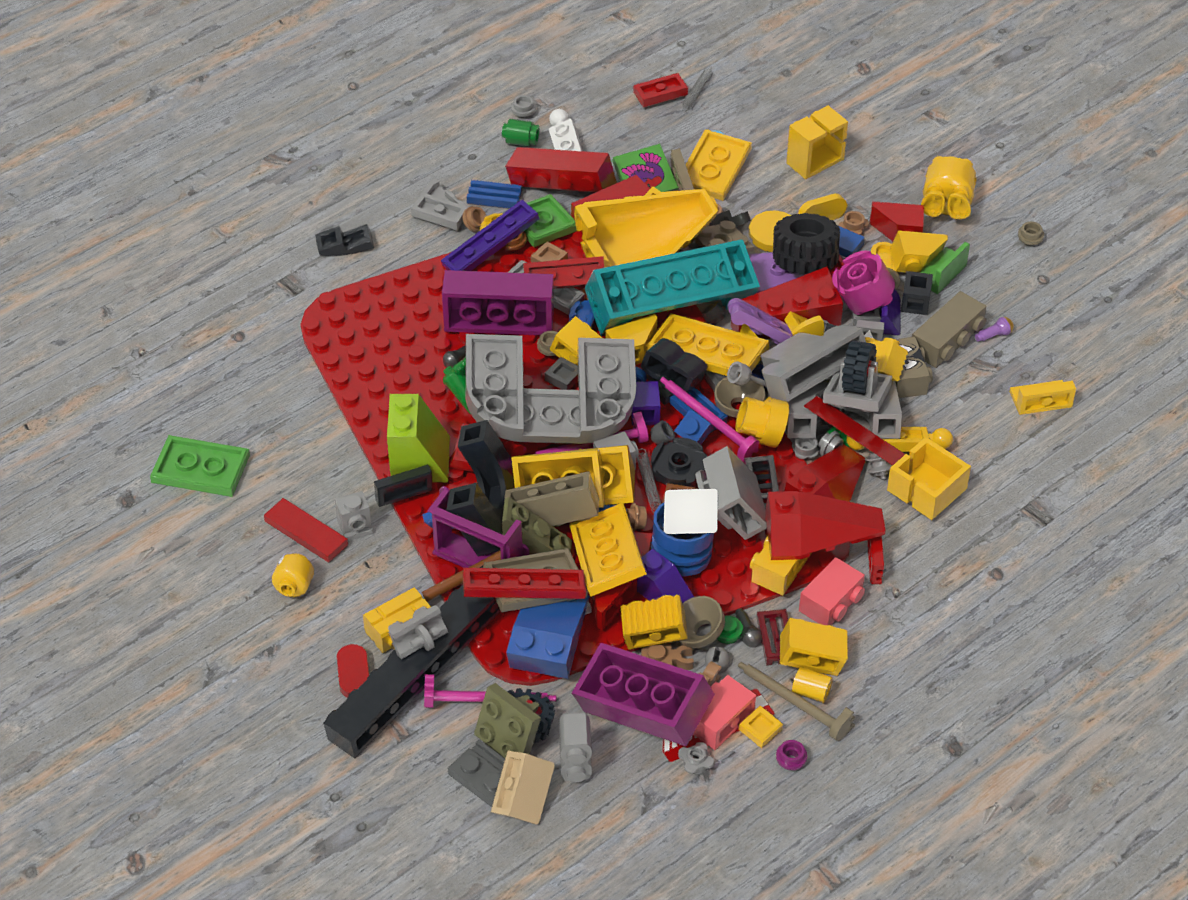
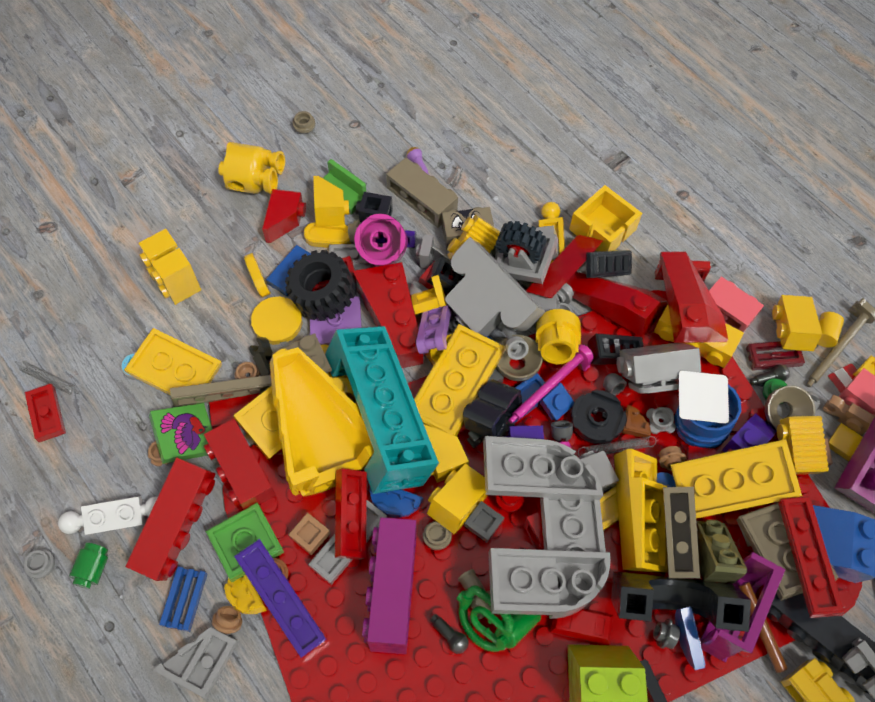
camera: 90 degrees left, 15 degrees up
(854, 222) = (275, 247): medium nougat plate -> none
(877, 469) = (608, 263): none -> black slope
(1043, 396) = (495, 139): yellow panel -> none

